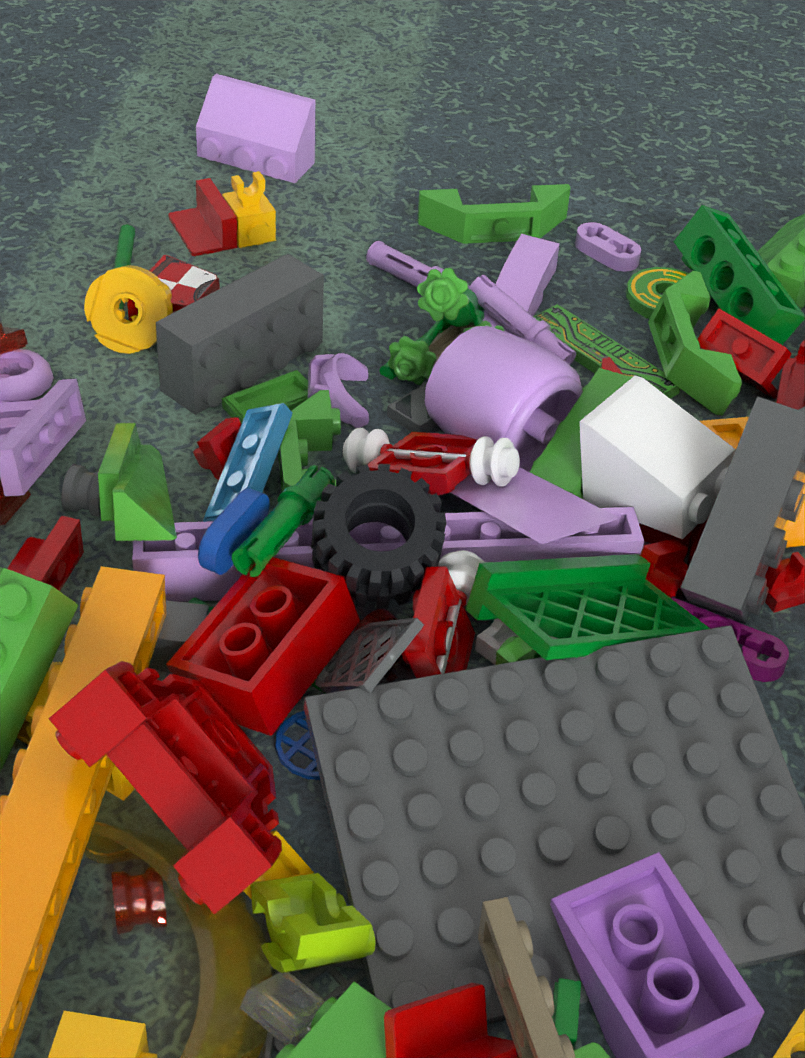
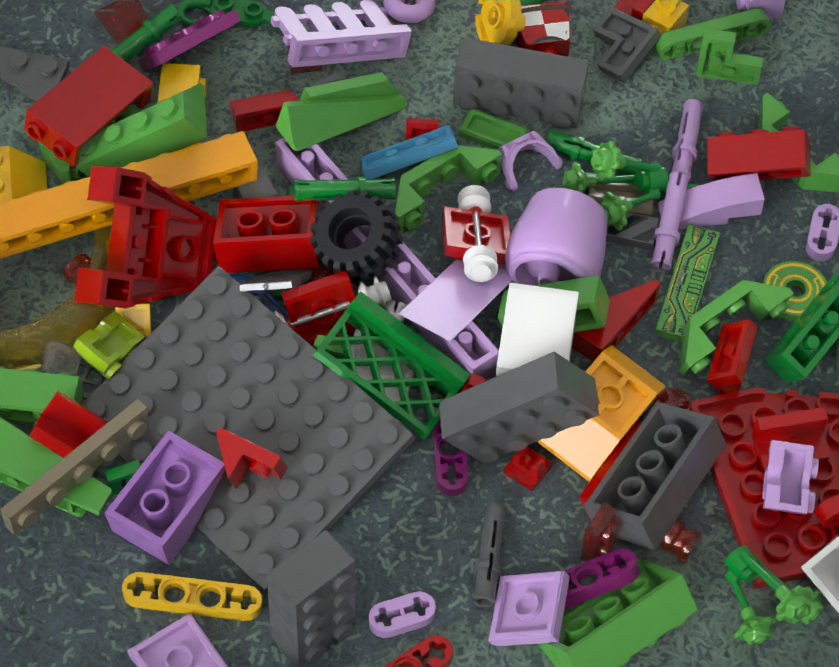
camera: 60 degrees right, 15 degrees up
(232, 529) = (315, 169): blue tile -> none
(242, 245) = (629, 39): none -> dark grey plate
(297, 201) = (682, 40): none -> bright green beam
(346, 199) = (719, 62): none -> bright green plate
(374, 340) = (582, 149): none -> green pin
(495, 224) = (761, 152): none -> red brick
(660, 823) = (243, 455): none -> red slope

